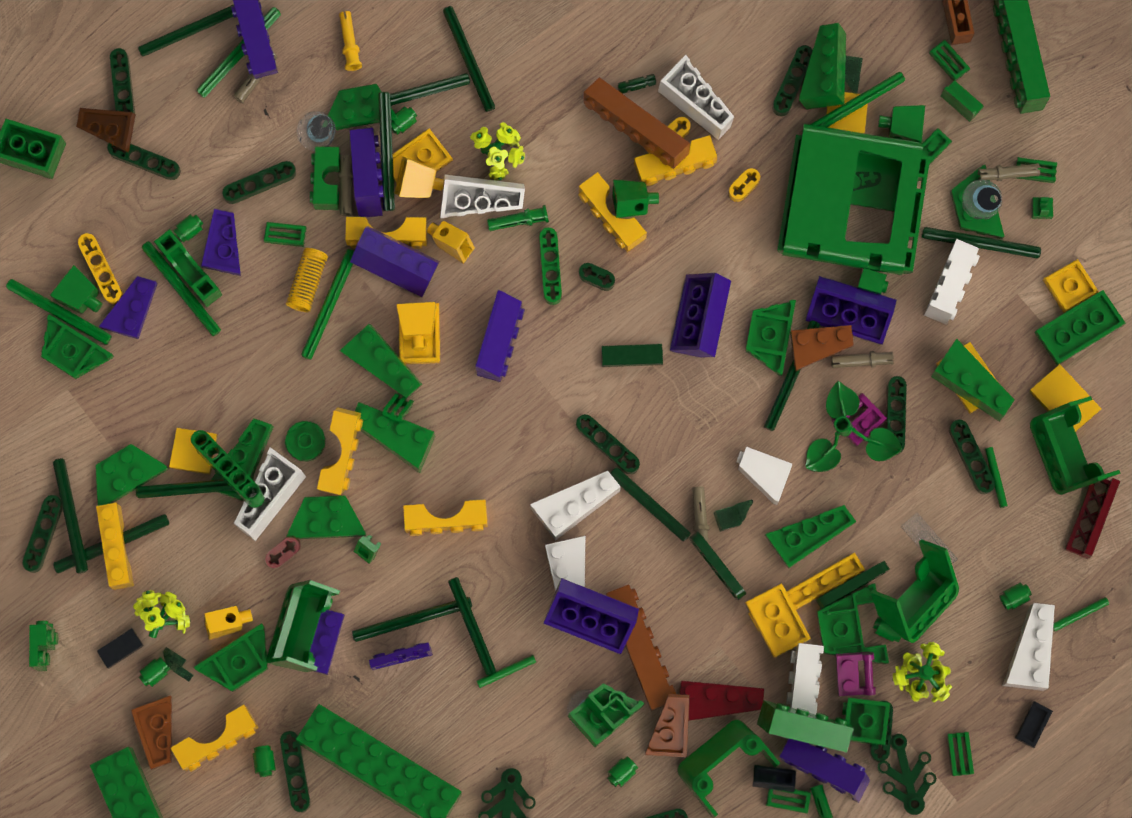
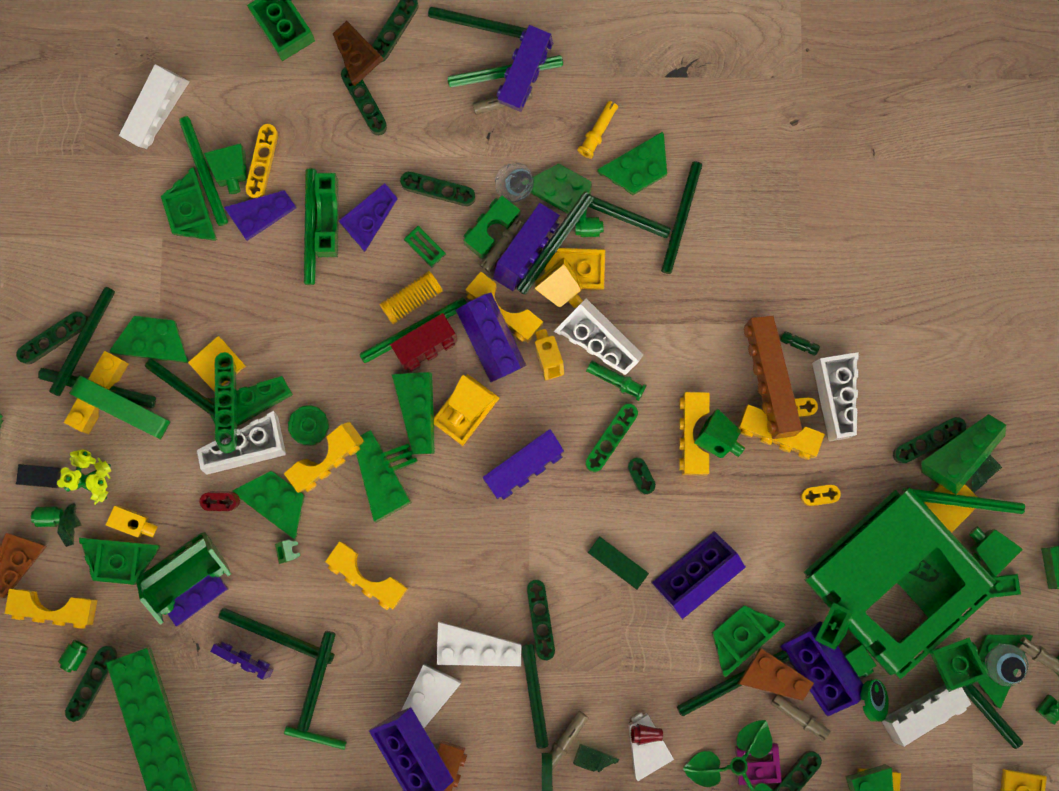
camera: 35 degrees right, 5 degrees up
(145, 539) = (119, 407): none -> green beam
(188, 228) = (353, 182): green brick -> none
(346, 304) = (424, 343): none -> dark red brick
(404, 45) = (638, 166): none -> green wing
(494, 152) = (639, 316): neon yellow plant -> none
(754, 461) = (645, 734): none -> dark red cone
(831, 268) = (834, 626): none -> green slope
(907, 301) = (875, 700): none -> green tile
(946, 225) = (959, 664): none -> green plate

